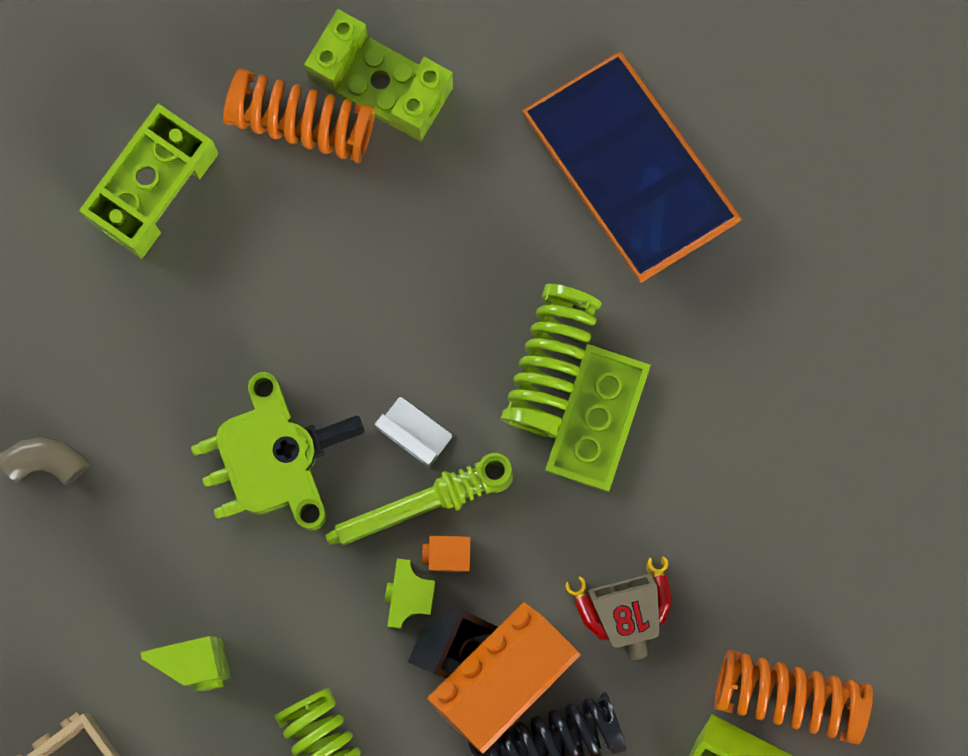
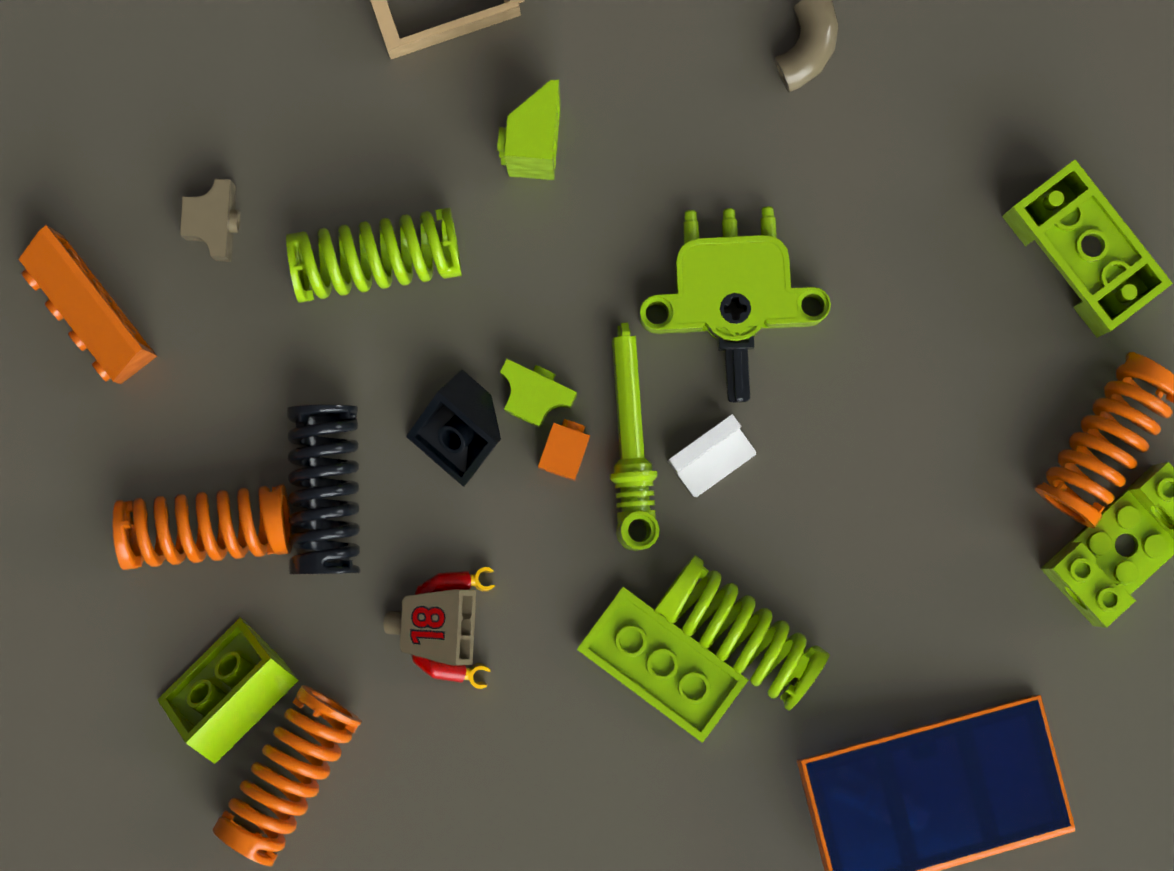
camera: 110 degrees right, 5 degrees up
(503, 677) = (410, 466): orange slope -> none

